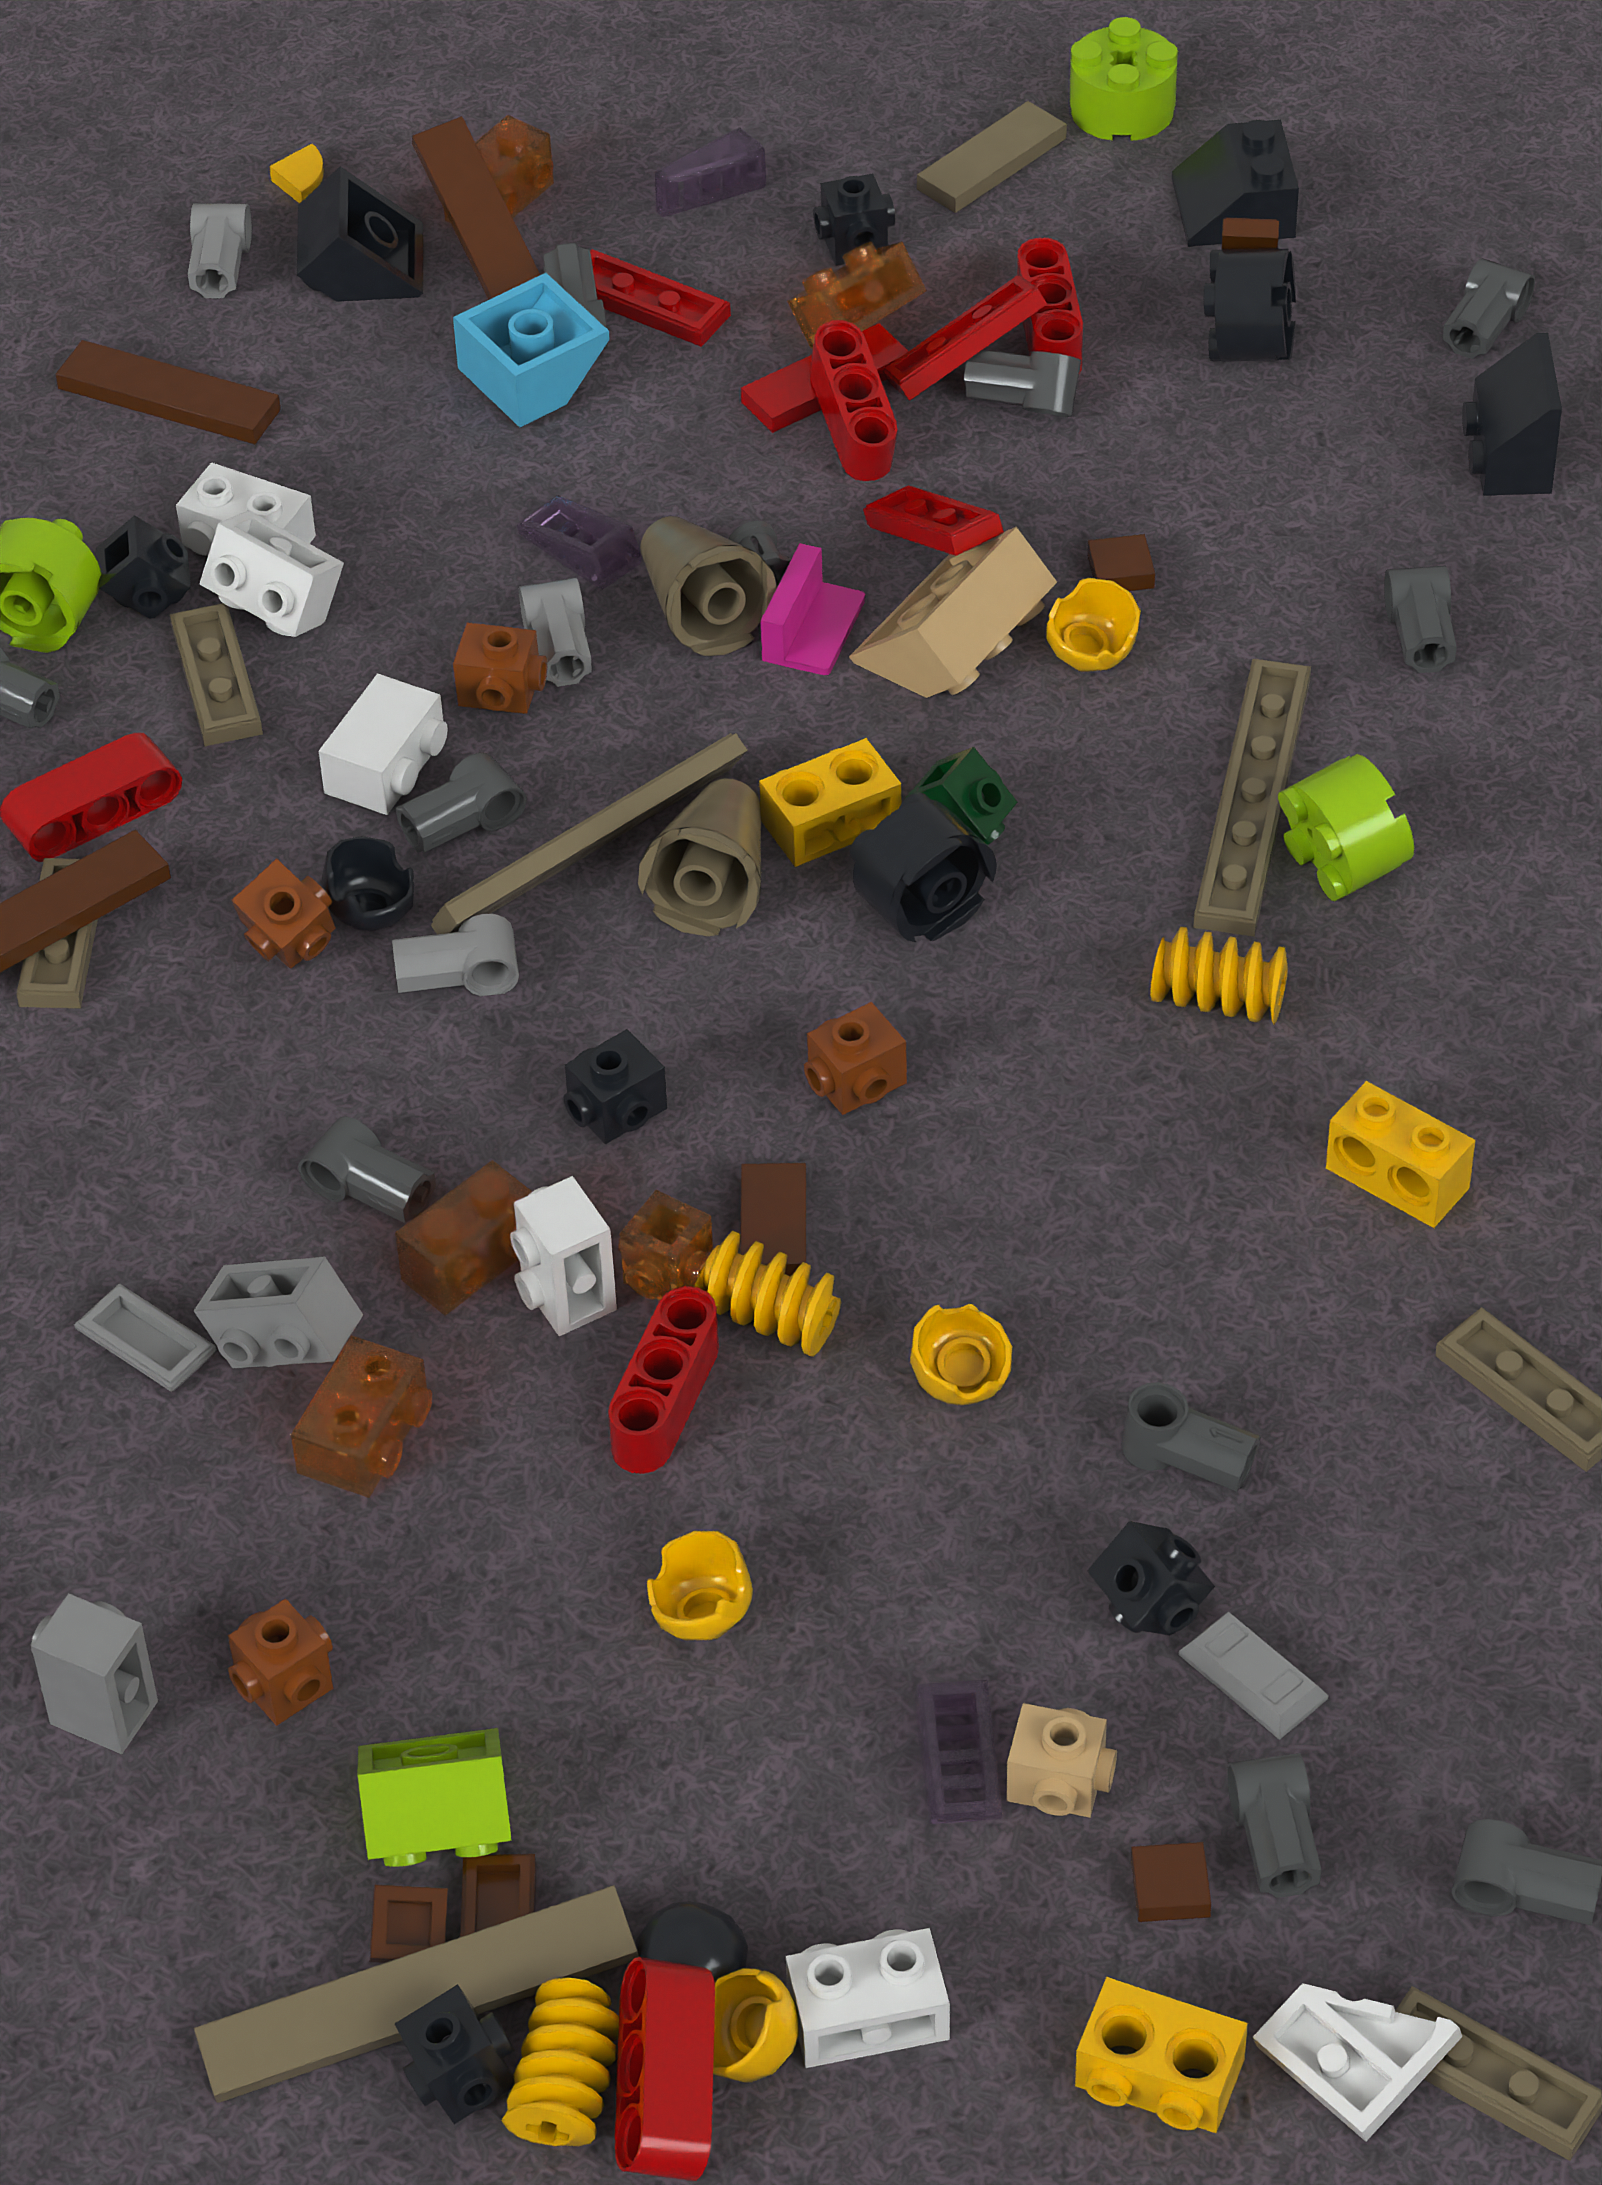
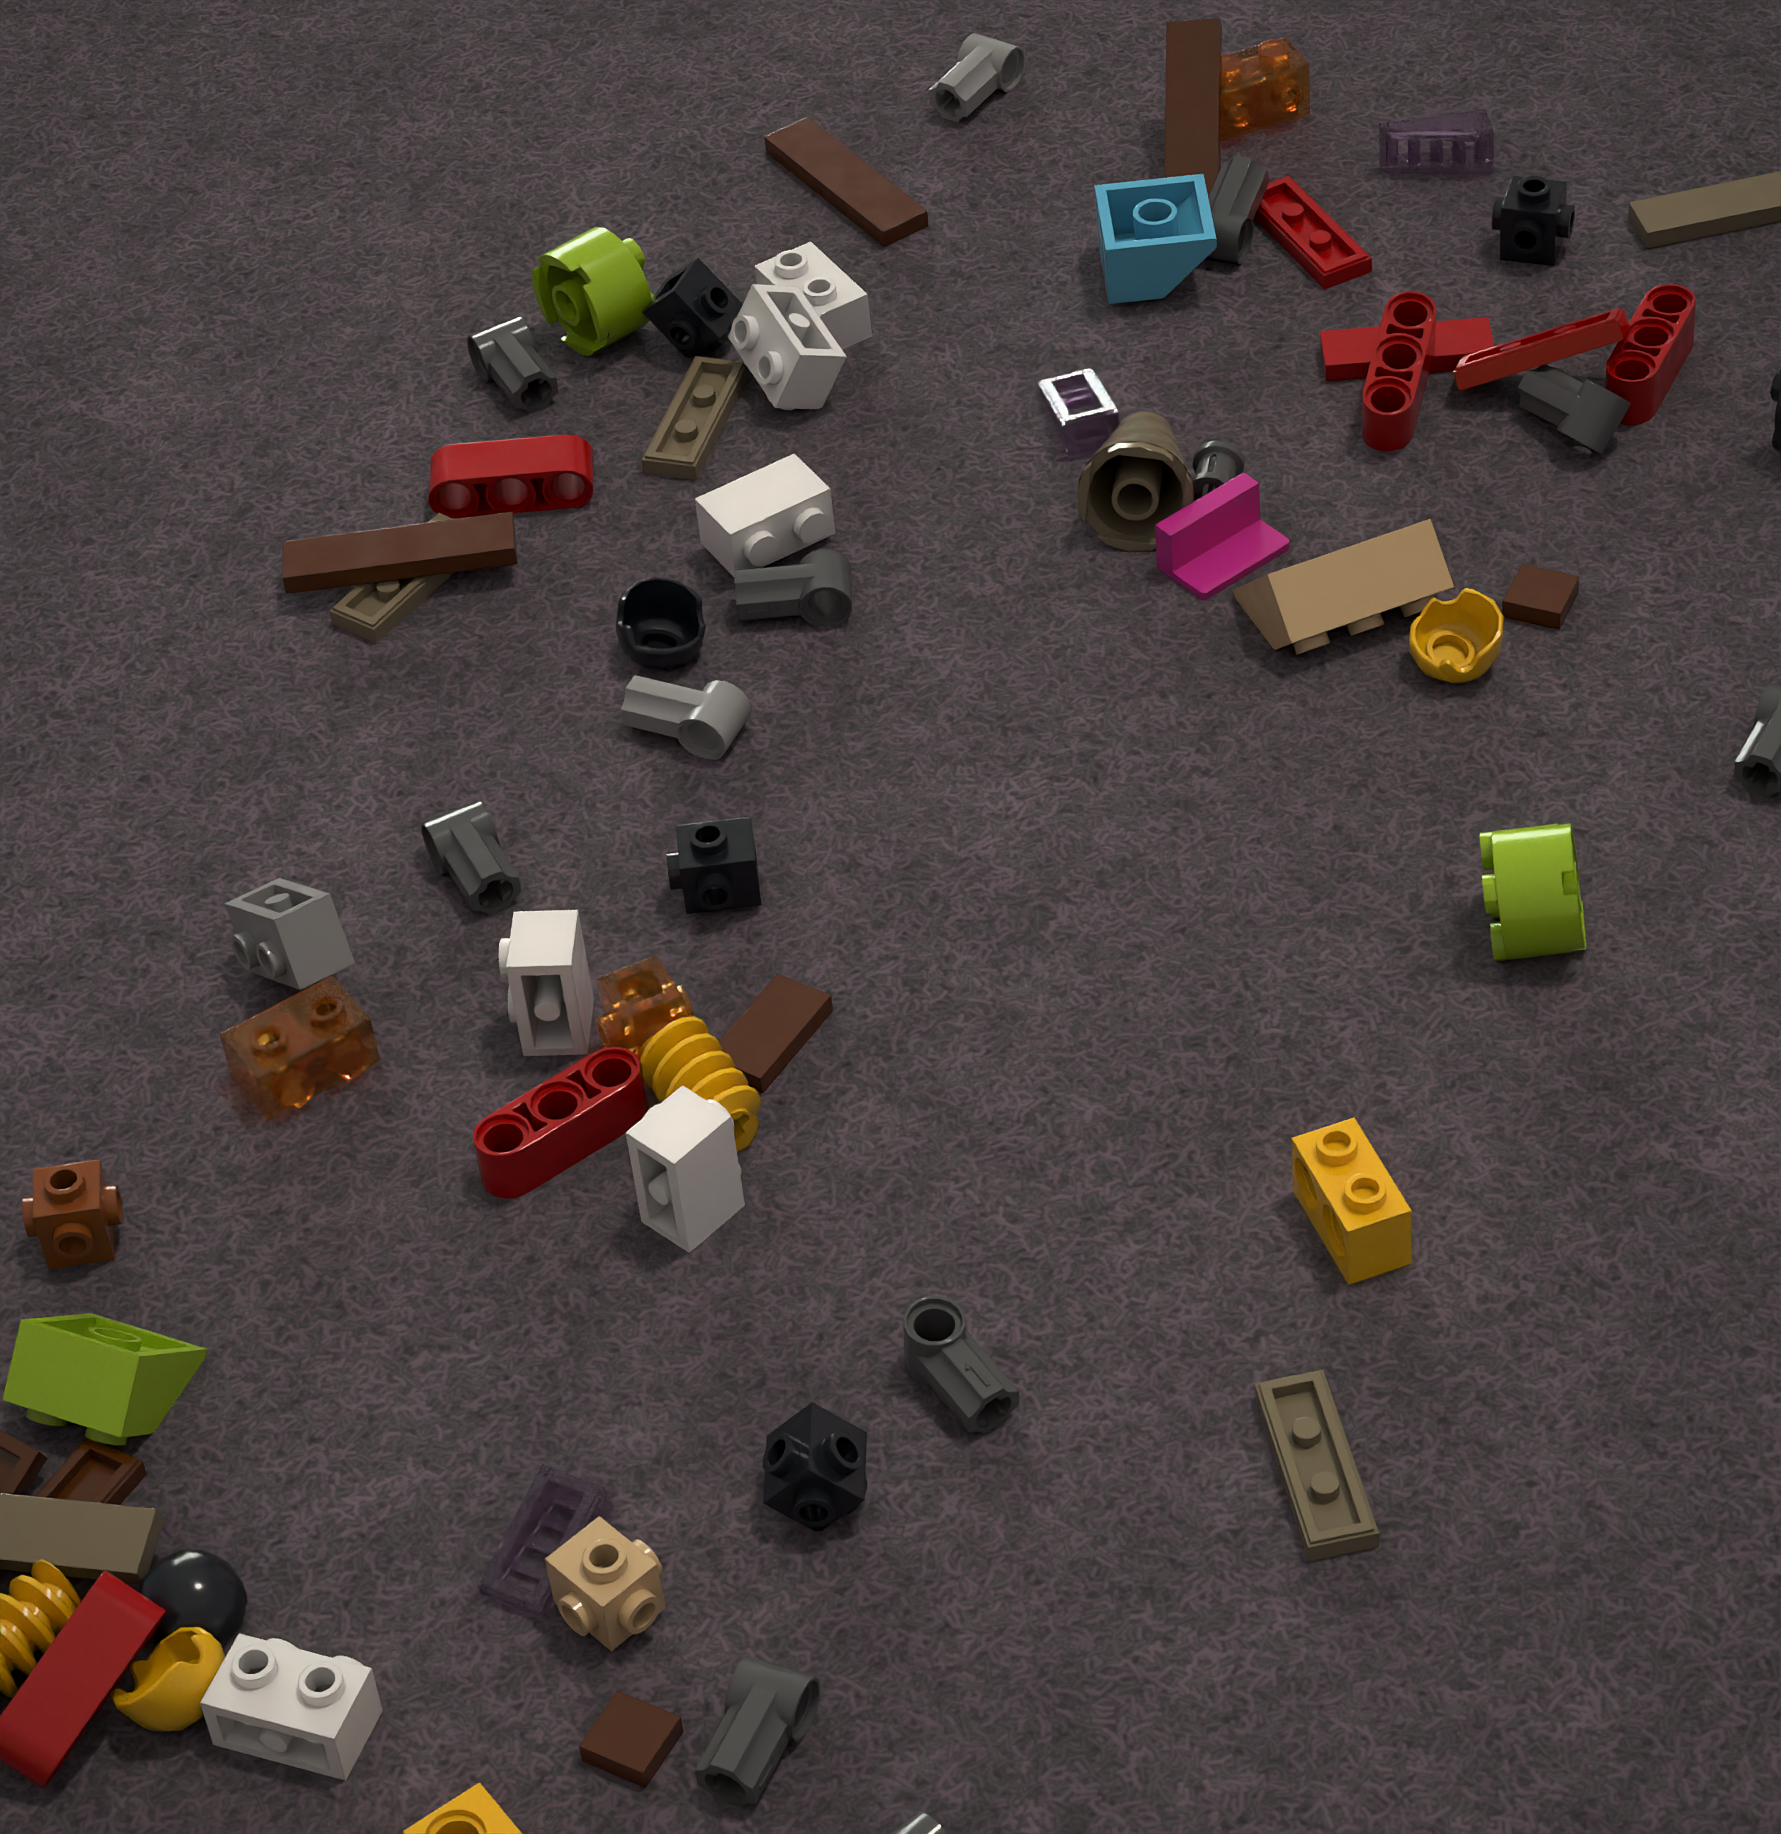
camera: 35 degrees right, 5 degrees down
(145, 1337) = (198, 918): light grey tile -> none
(285, 915) = (571, 623): dark orange brick -> none
(299, 172) = (1098, 39): yellow tile -> none
(358, 243) = (1092, 109): black slope -> none
(461, 1239) = (471, 930): clear orange brick -> none
(498, 668) = (909, 488): dark orange brick -> none
(559, 621) = (996, 469): light grey piece -> none
(590, 834) = (882, 652): dark tan tile -> none
(700, 1586) = (445, 1307): yellow hair -> none
(707, 861) = (950, 703): dark tan cone -> none
(828, 801) = (1101, 702): yellow brick -> none
(830, 1368) = (685, 1168): none -> white brick
(856, 1058) = (934, 922): dark orange brick -> none
(860, 292) = (1480, 282): clear orange brick -> none
(922, 869) = (1118, 783): black brick -> none
(933, 520) = (1382, 494): red tile -> none
(960, 1354) = (815, 1205): yellow hair -> none
(970, 791) = (1210, 743): dark green brick -> none
(1219, 975) = (1317, 978): yellow piece -> none
(1249, 800) = (1454, 870): dark tan tile -> none
(1253, 1675) = (855, 1597): light grey tile -> none

